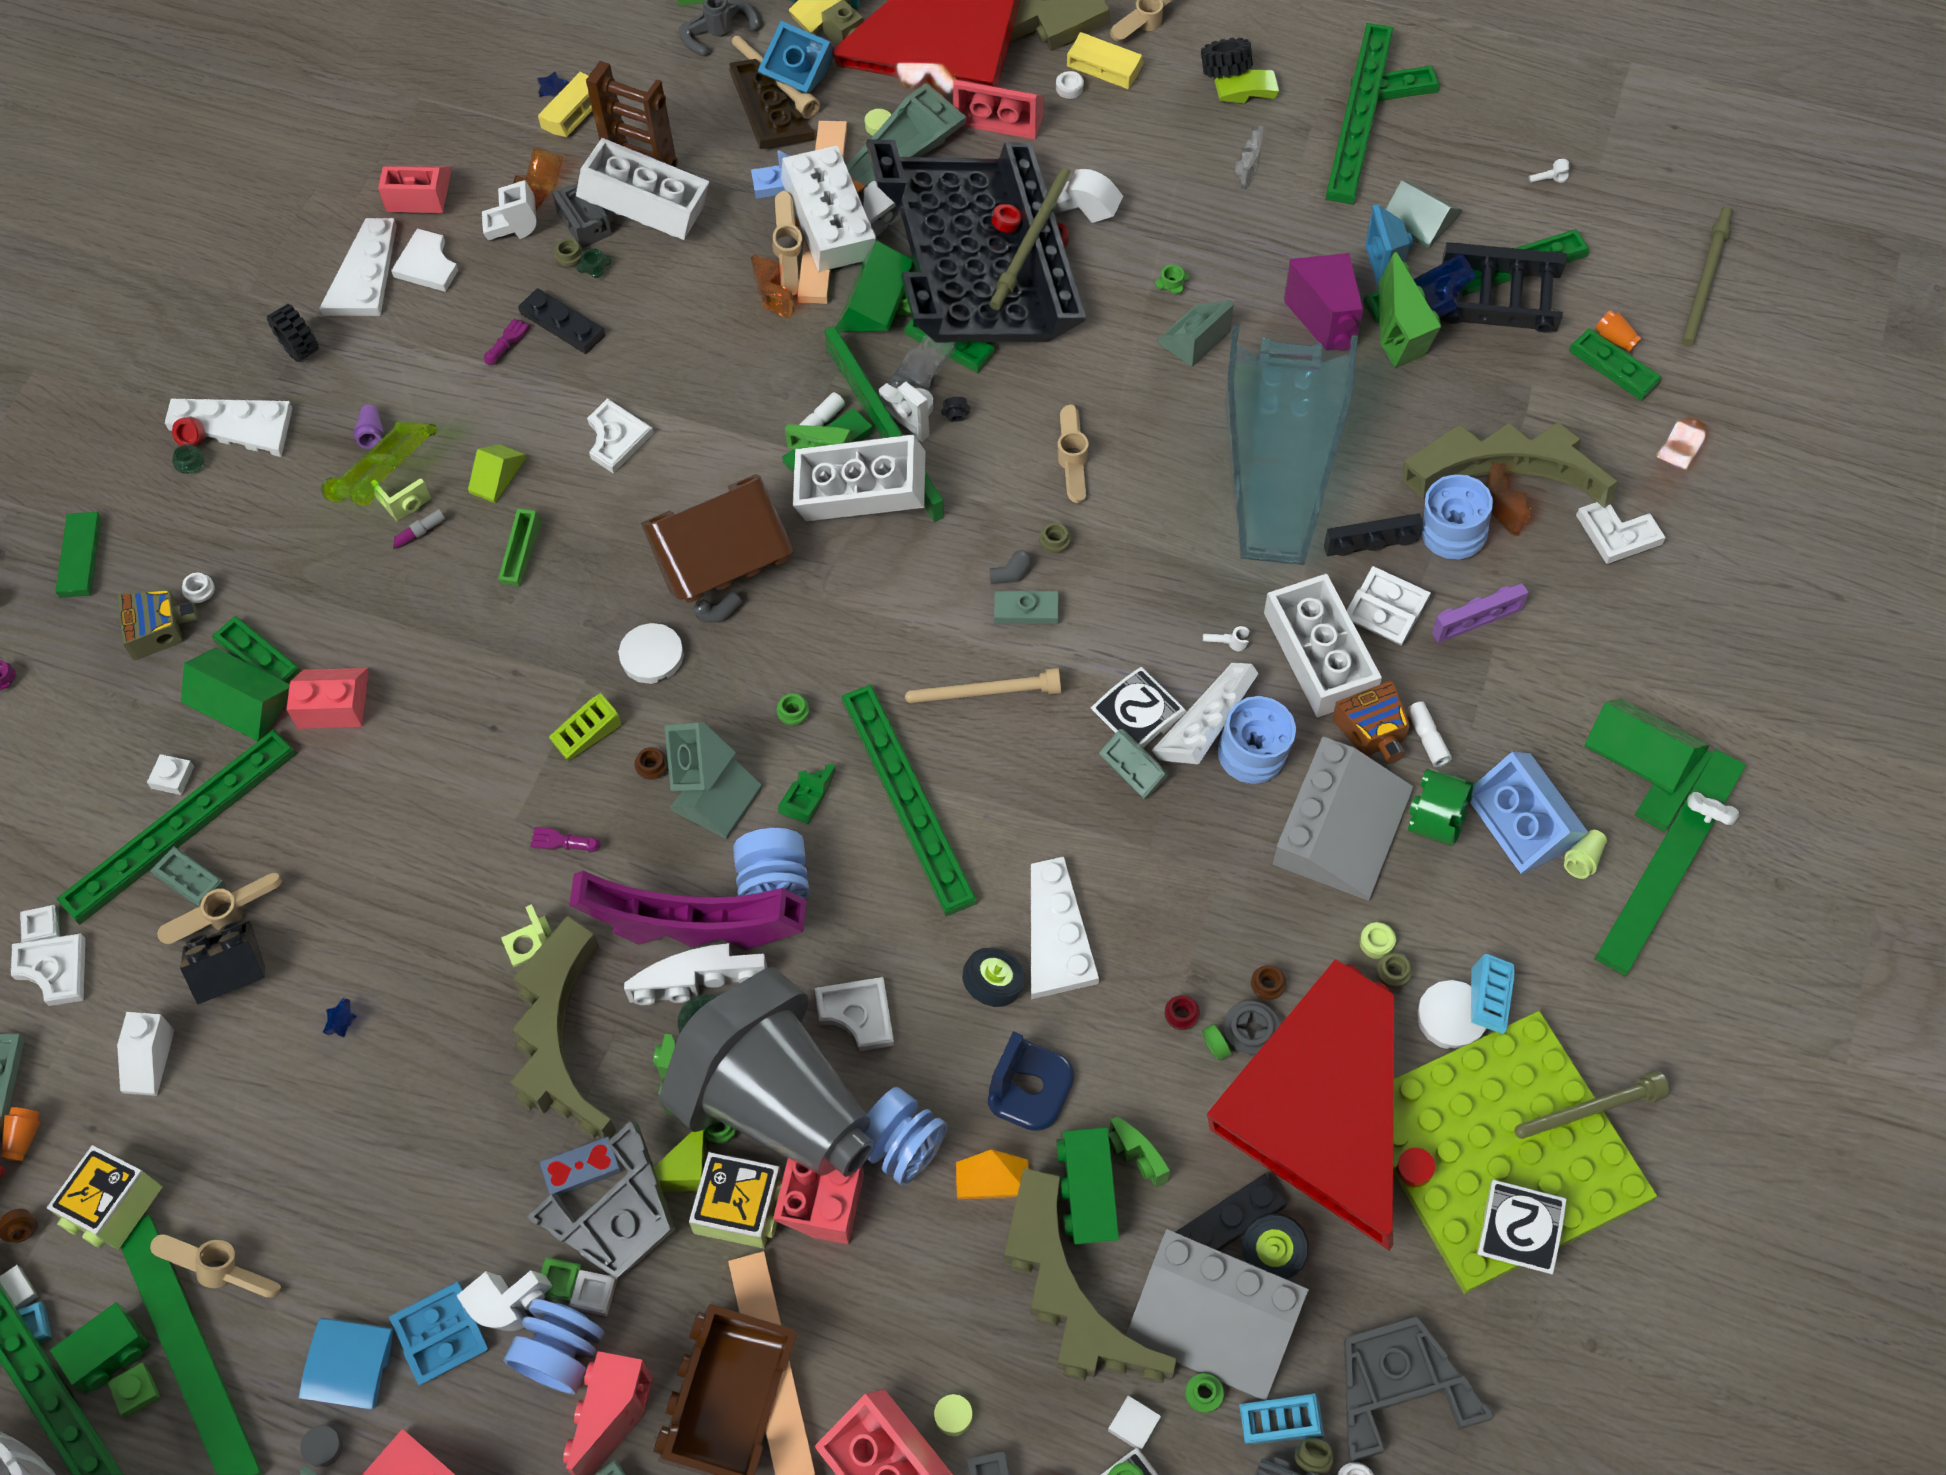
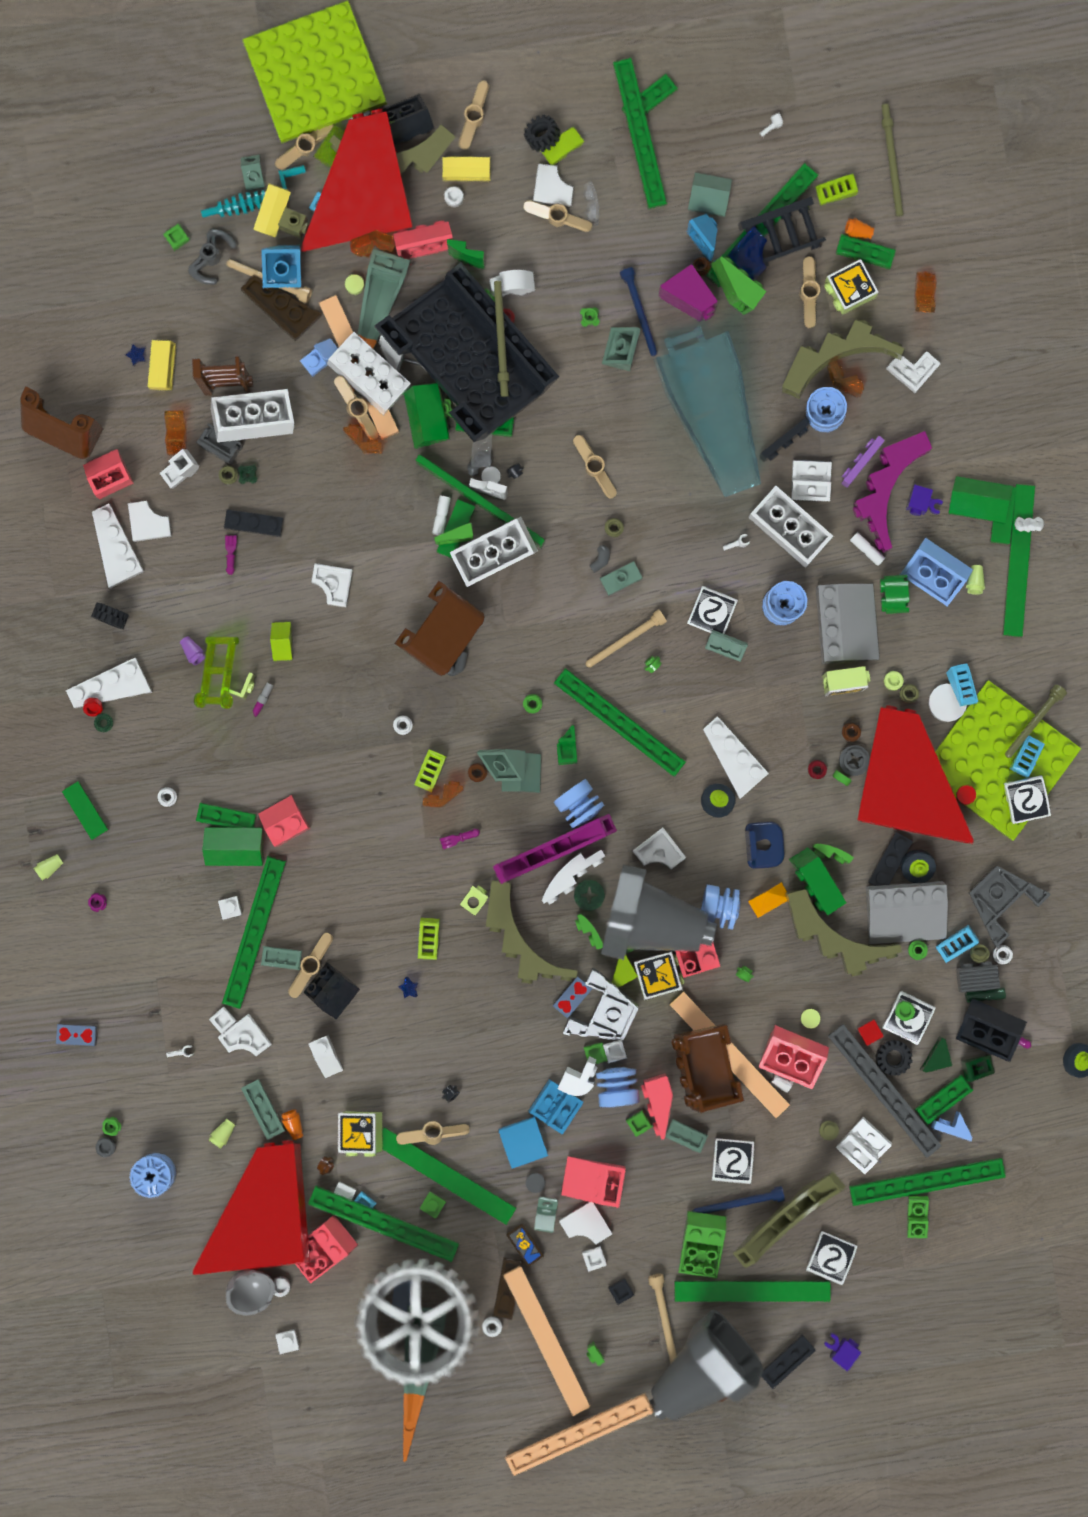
camera: 25 degrees left, 25 degrees up
(100, 1348) = (406, 1197): green brick -> none
(152, 621) = (158, 829): olive torso -> none
(288, 1217) = (450, 1093): none -> black plate
(403, 120) = (74, 438): none -> reddish brown windscreen
(409, 956) = (428, 922): none -> lime slope
(519, 547) = (326, 683): bright green piece -> none
(552, 1438) = (639, 1123): none -> bright green tile
(584, 643) = (398, 720): none -> white plate
(588, 770) = (450, 791): none -> clear orange slope
(651, 653) = (437, 708): white tile -> none
(882, 1276) = (744, 973): none -> bright green plate
(1005, 737) = (652, 664): none -> bright green plate
(1006, 218) = (475, 325): red tile -> none
(1046, 136) = (459, 251): none -> green slope
(1134, 1423) = (893, 979): white tile -> none
(1188, 147) = (546, 211): none -> tan piece
(1205, 124) = (550, 188): none -> white tile
(1205, 719) = (750, 607): white wing -> none
(1253, 255) = (628, 276): none -> dark blue piece
(1296, 893) = (845, 681): none -> yellowish green piece
(1366, 282) = (701, 262): none -> reddish brown plate
(1374, 721) = (838, 557): torso -> none
(1504, 385) = (809, 302): none -> tan piece
(1531, 1172) = (1020, 770): none -> medium azure slope
(1532, 634) = (874, 506): none -> magenta arch
(1549, 702) = (921, 500): none -> dark purple brick
(1572, 391) = (850, 287): none -> piece
(1625, 270) = (834, 183): none -> lime slope

